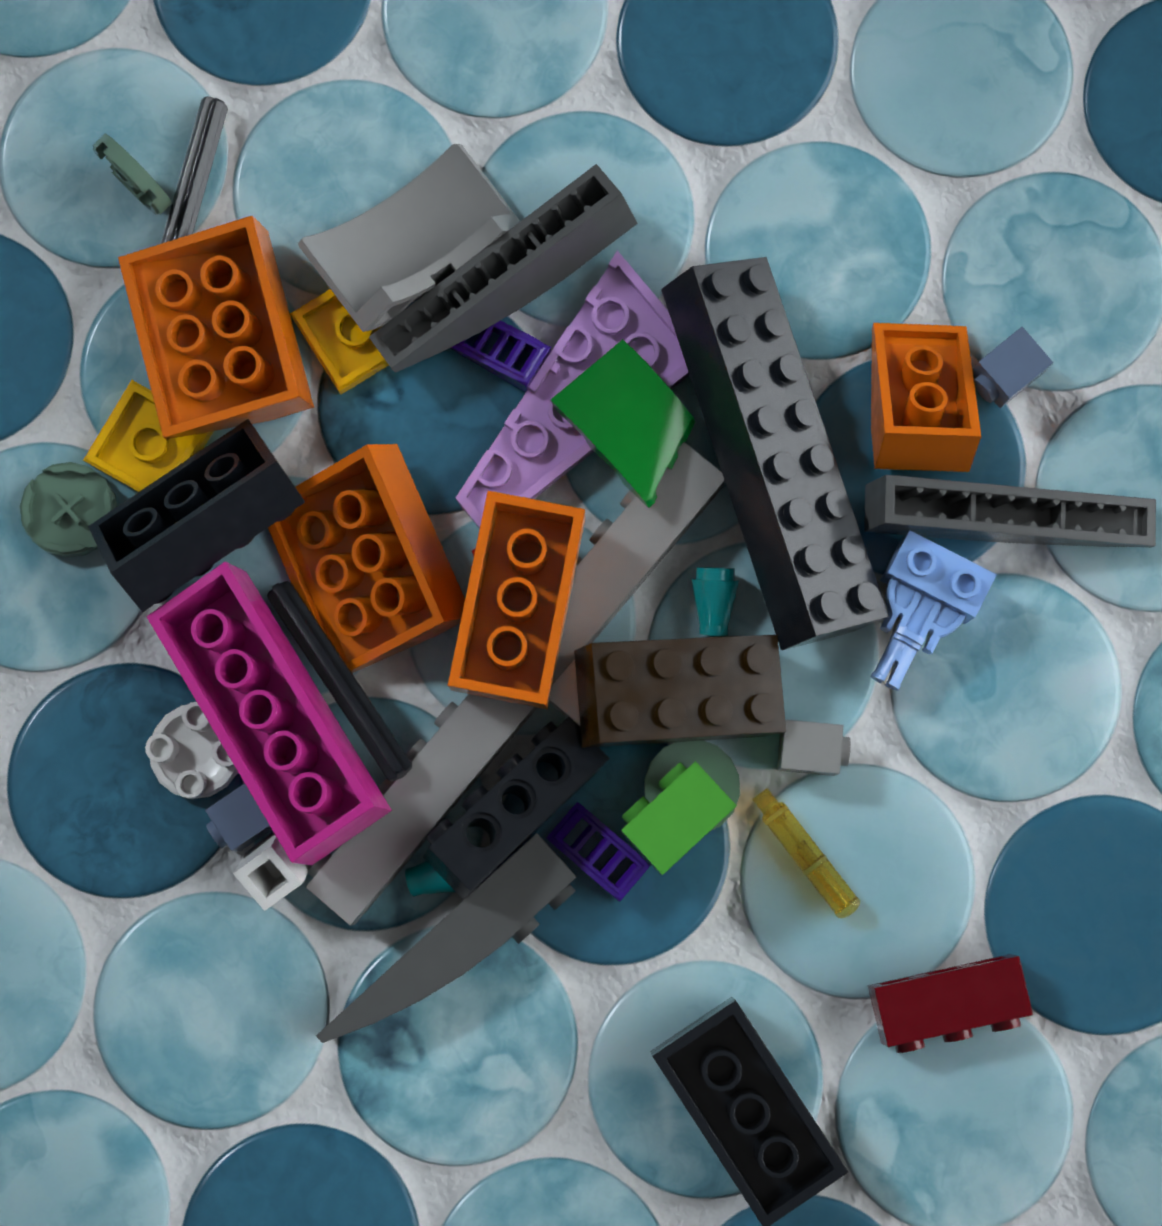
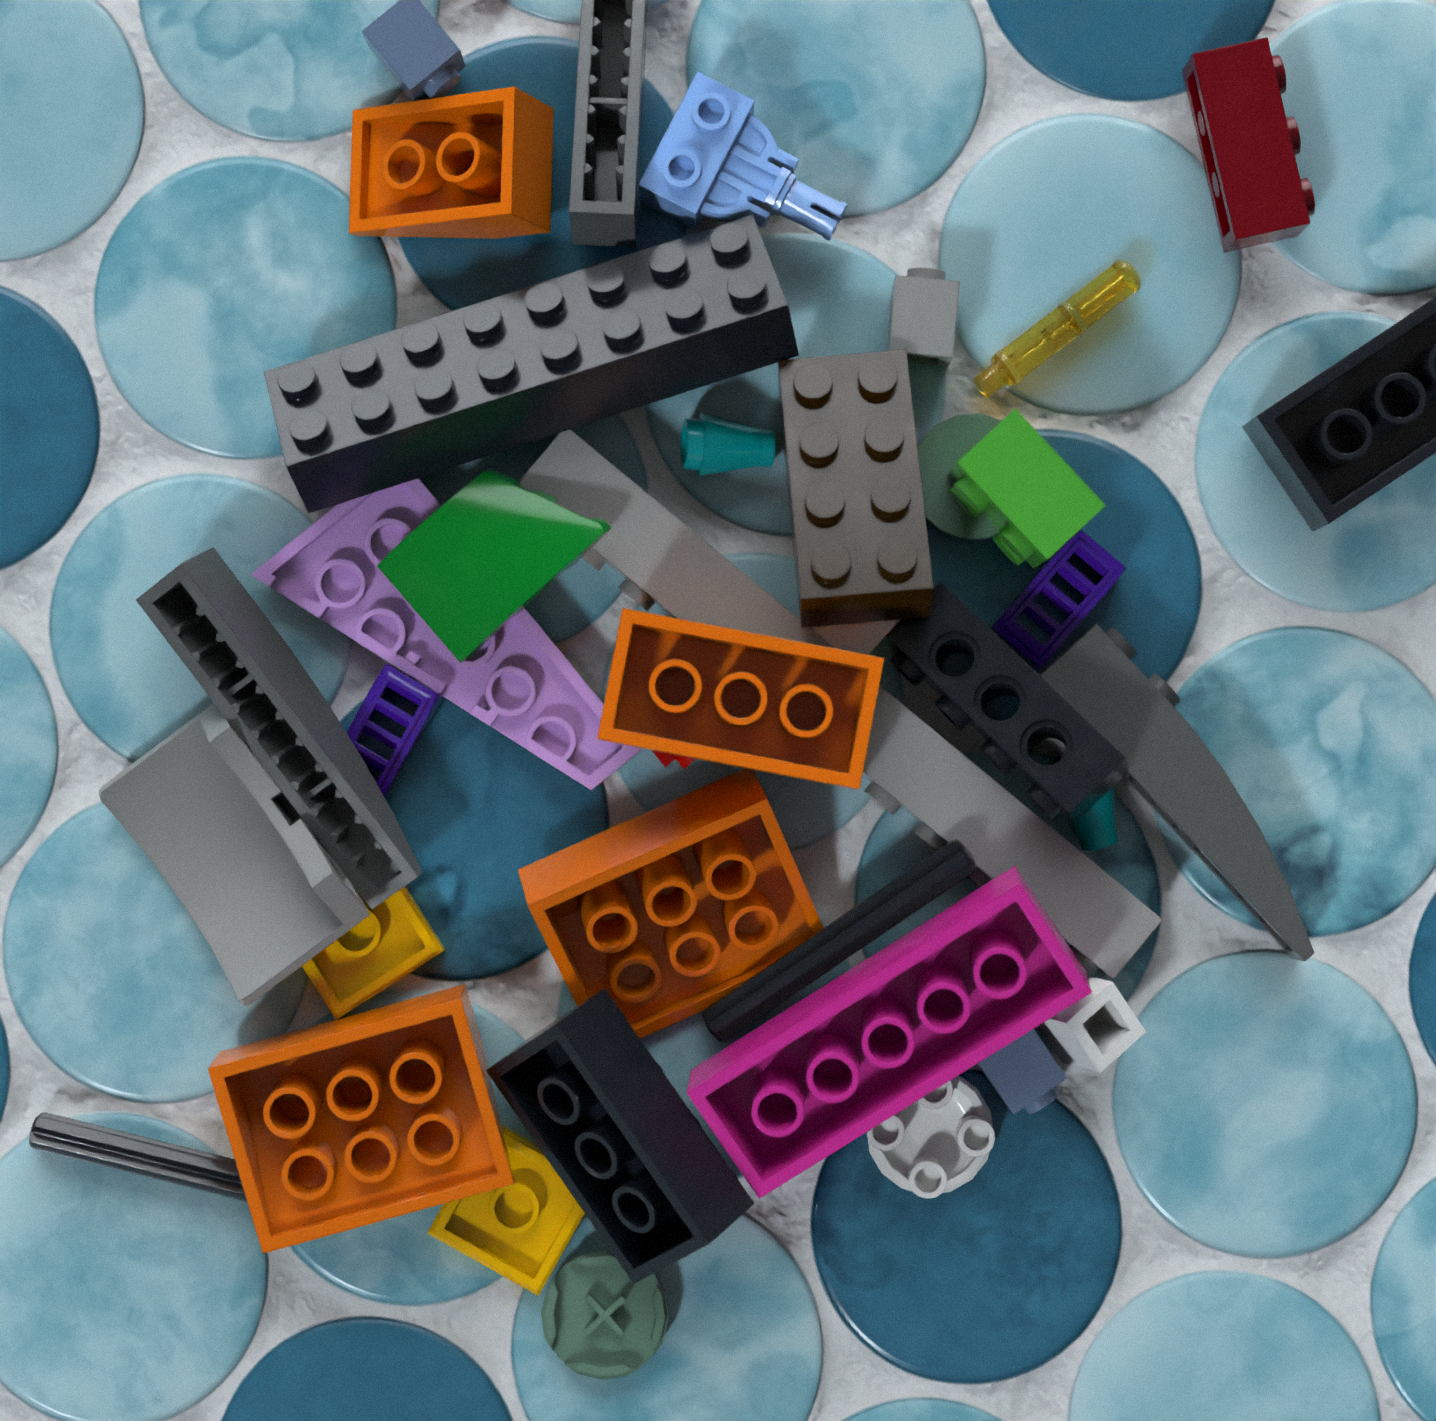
camera: 90 degrees left, 5 degrees up
(132, 174) = (144, 1238): sand green tile -> none

